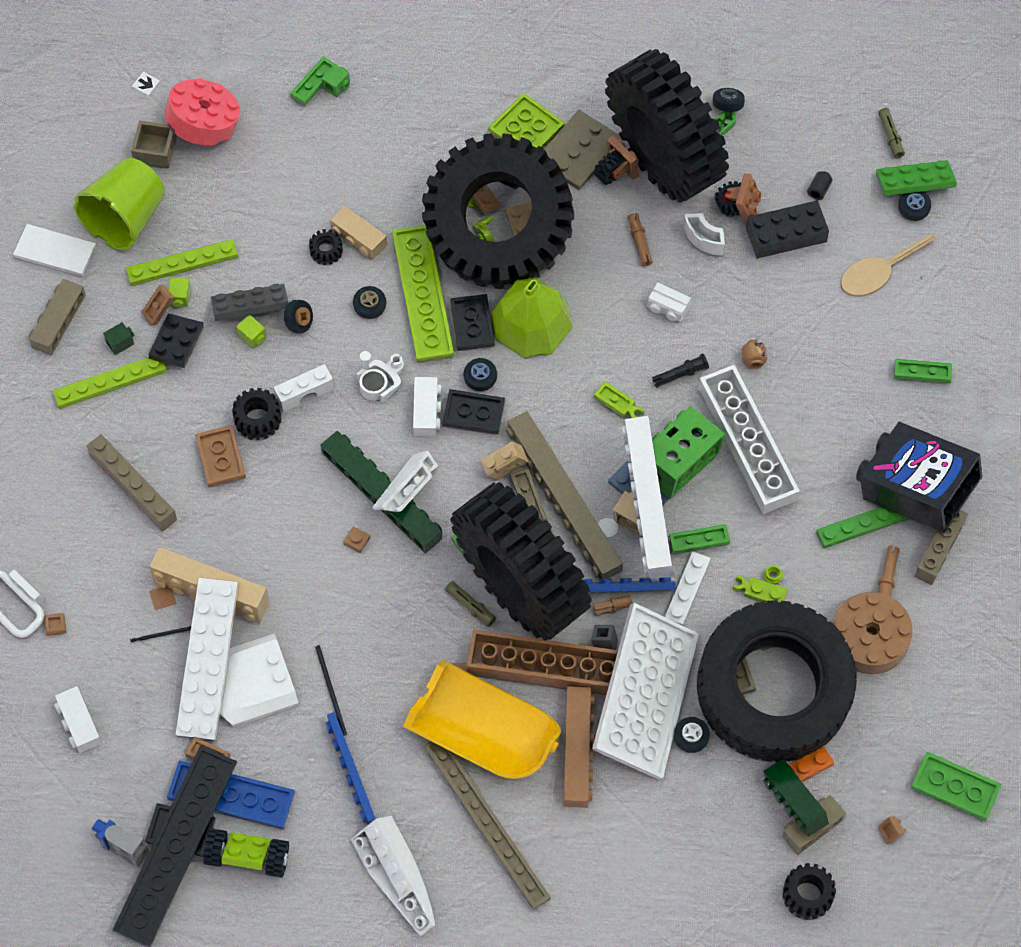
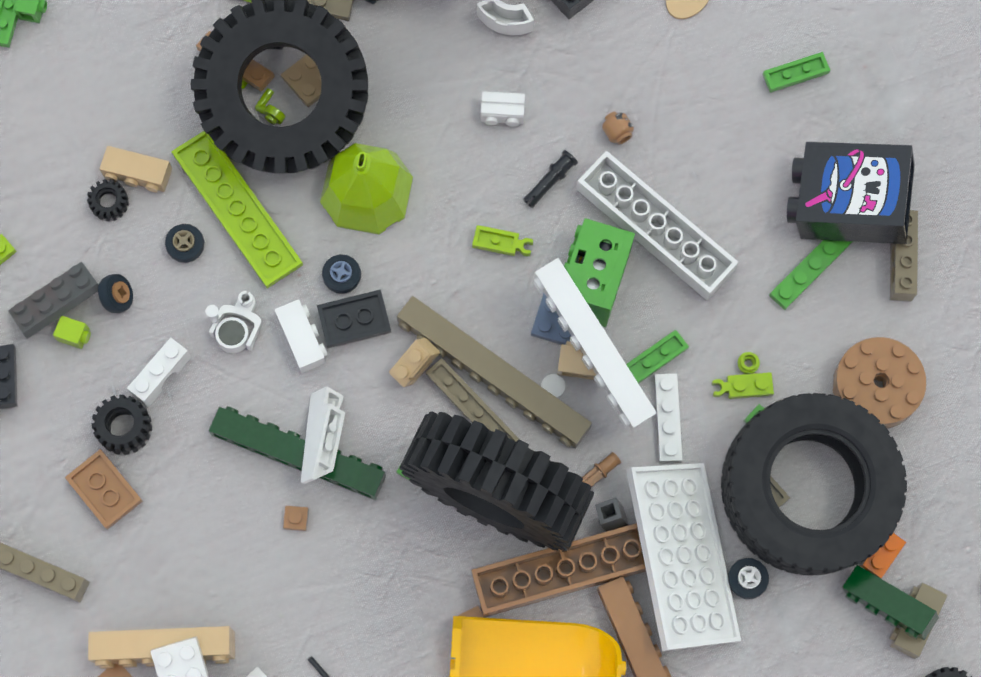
camera: 25 degrees left, 10 degrees up
(472, 322) = (305, 218): black plate -> none
(486, 617) = (425, 529): olive pin -> none
(627, 584) = (605, 443): blue plate -> none
(637, 232) = (433, 43): medium nougat pin -> none
(886, 582) = (867, 319): medium nougat pin -> none

